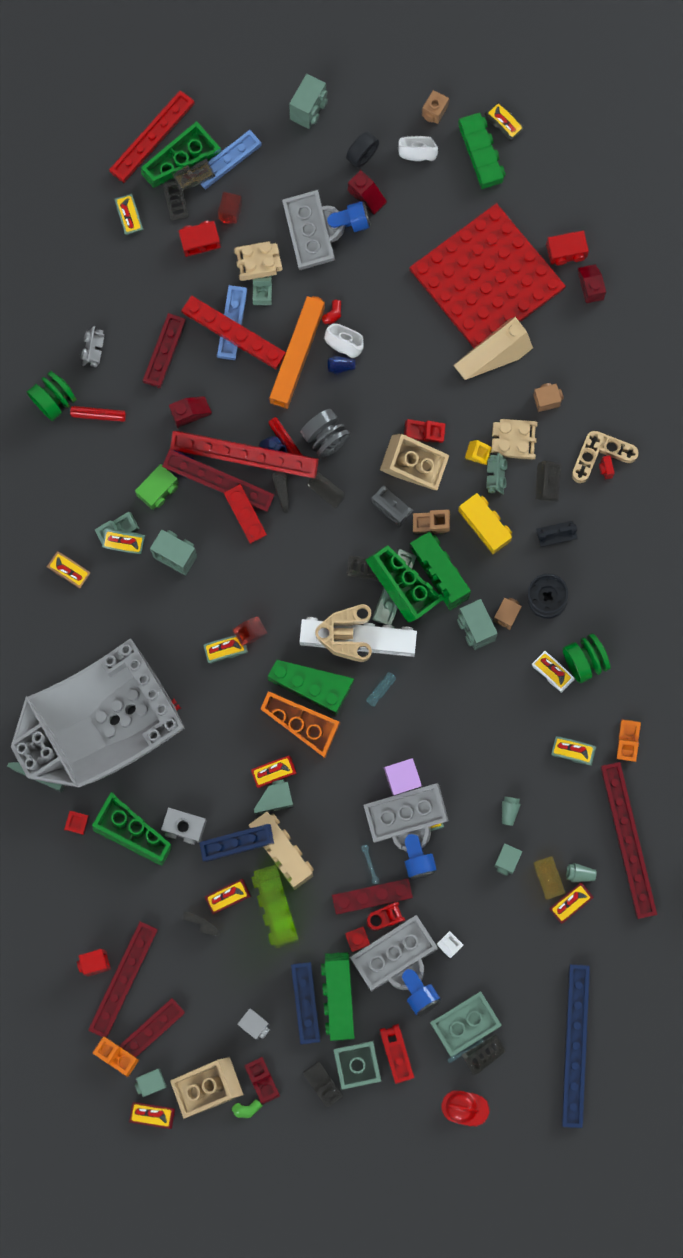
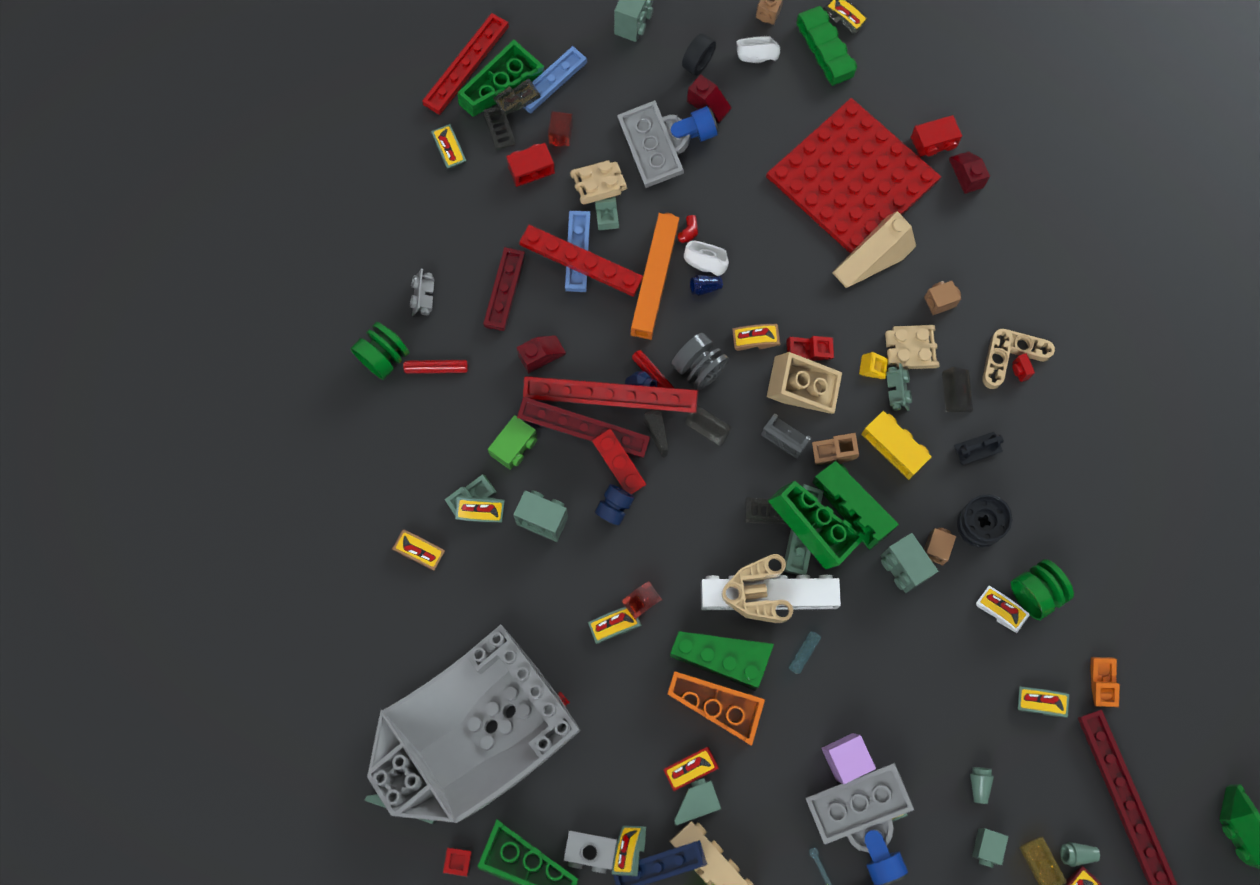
camera: 10 degrees left, 5 degrees down
(212, 831) = (629, 845): none -> slope
(237, 548) = (614, 504): none -> dark blue wheel
(378, 415) = (754, 336): none -> slope

